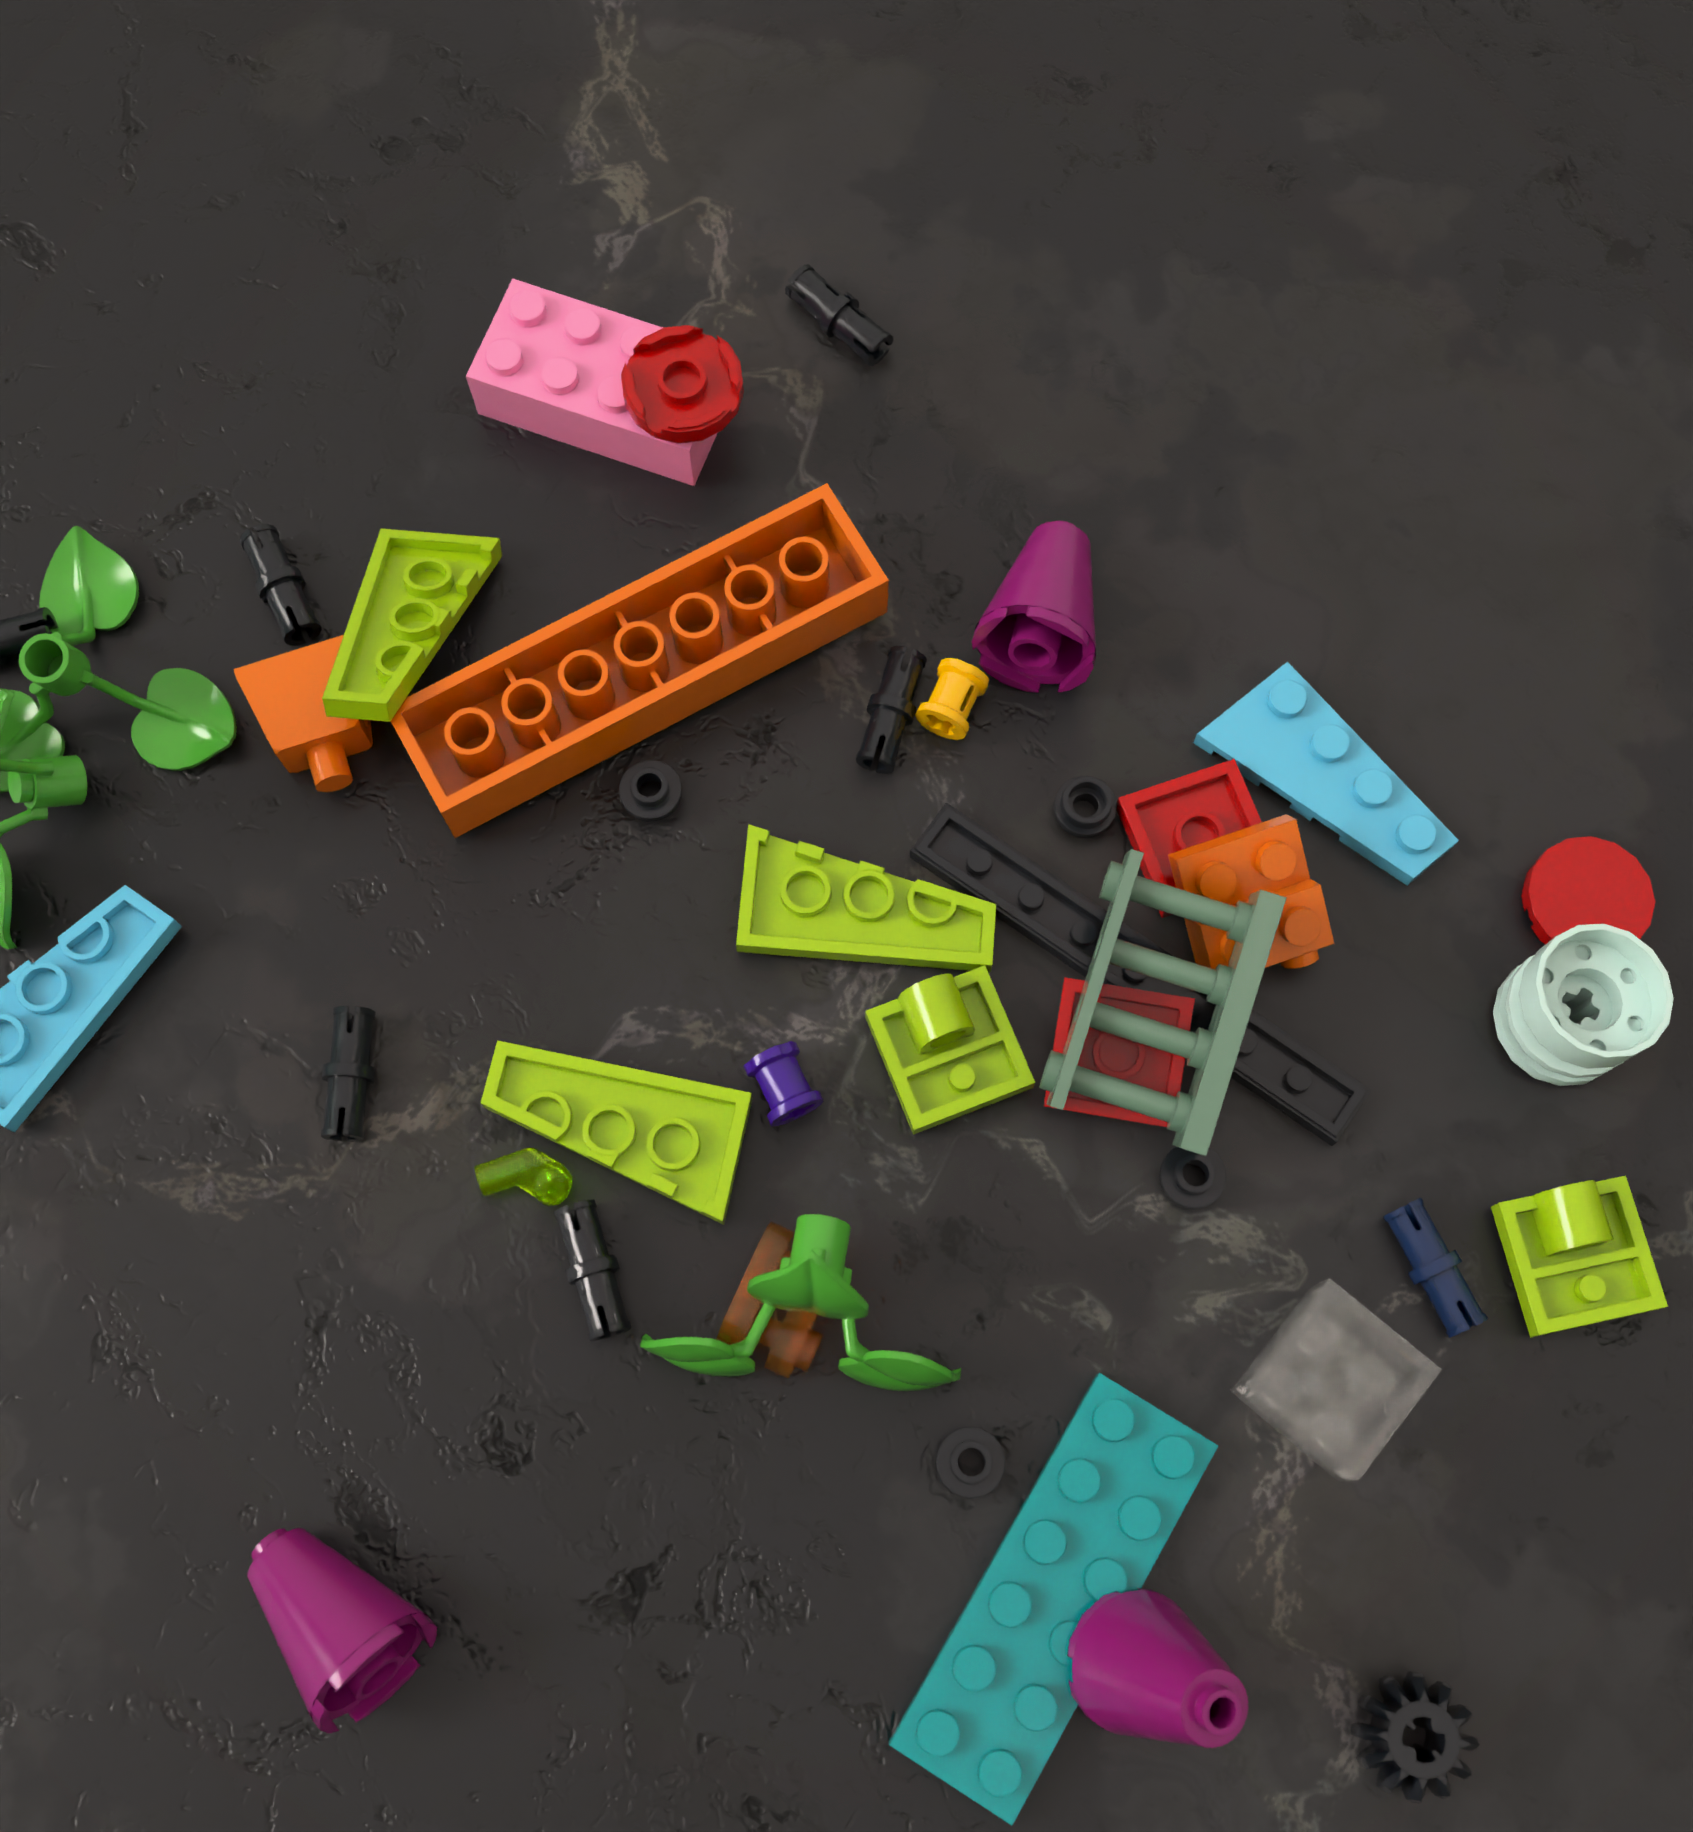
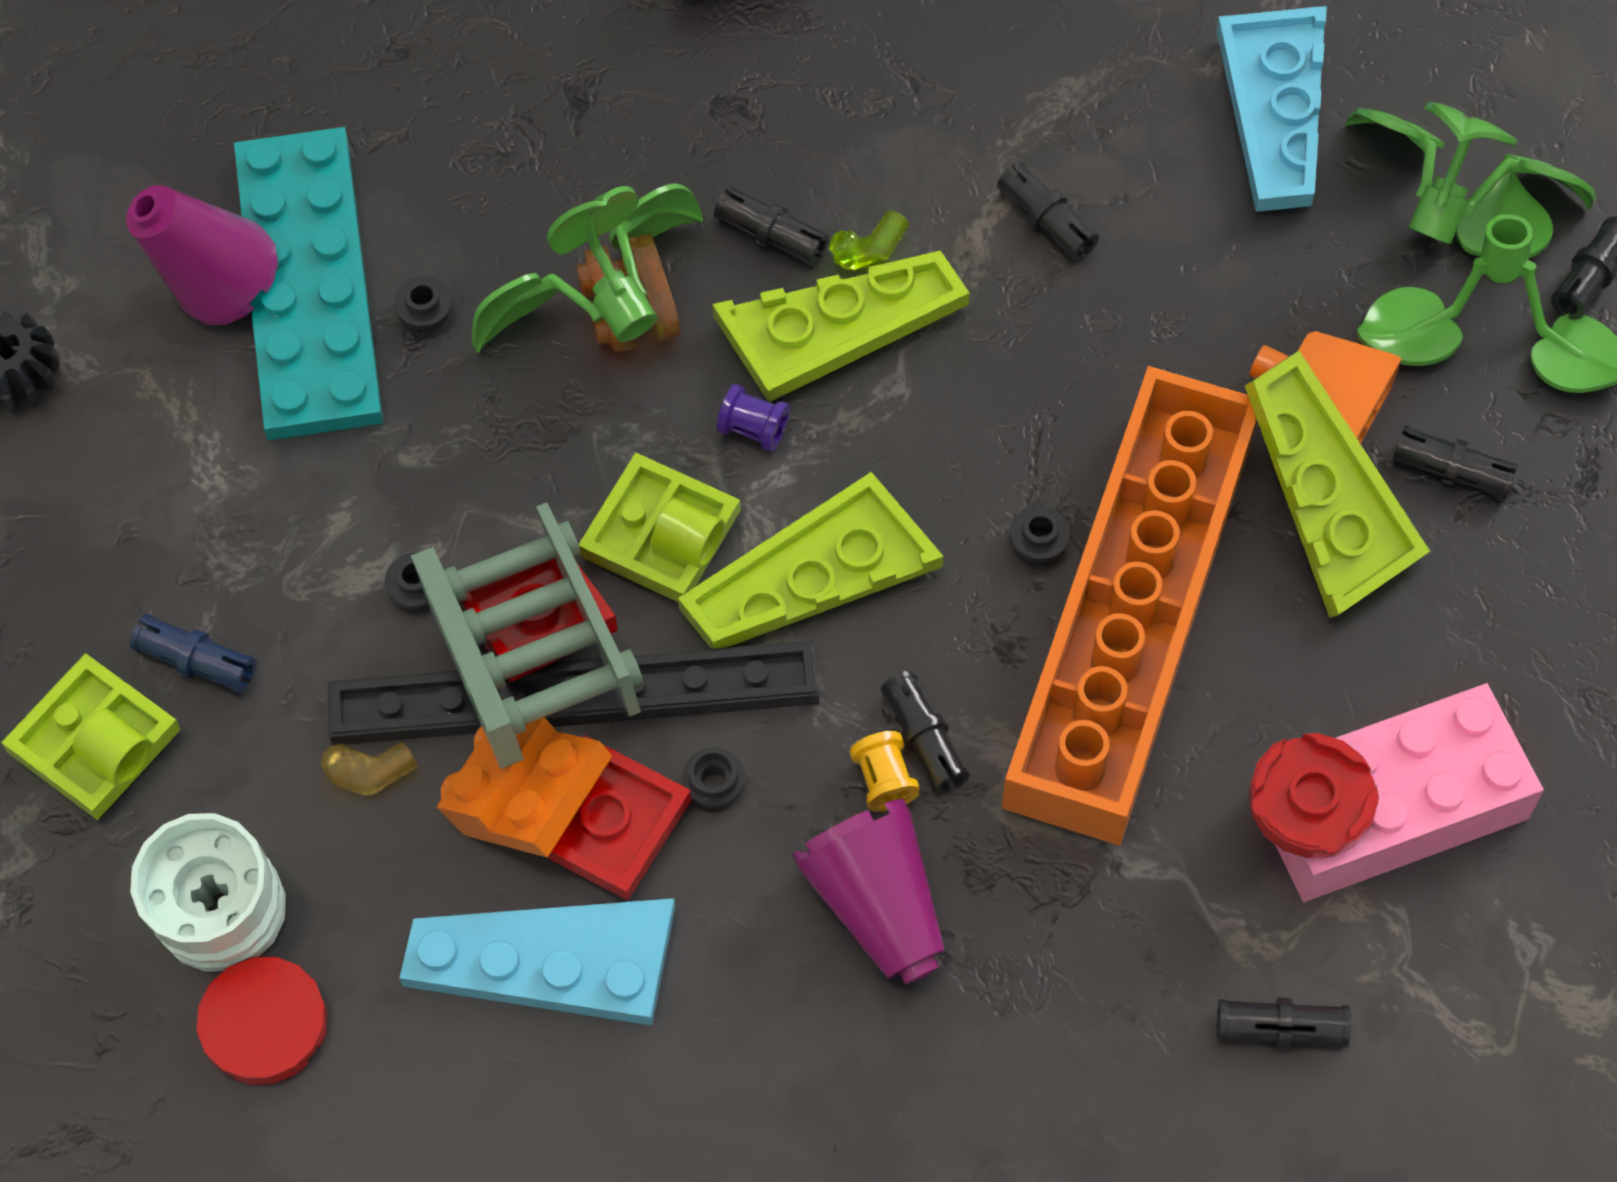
camera: 140 degrees right, 10 degrees down
(1336, 1381) = (211, 509): clear brick -> none
(1363, 1034) = (363, 772): none -> clear yellow arm

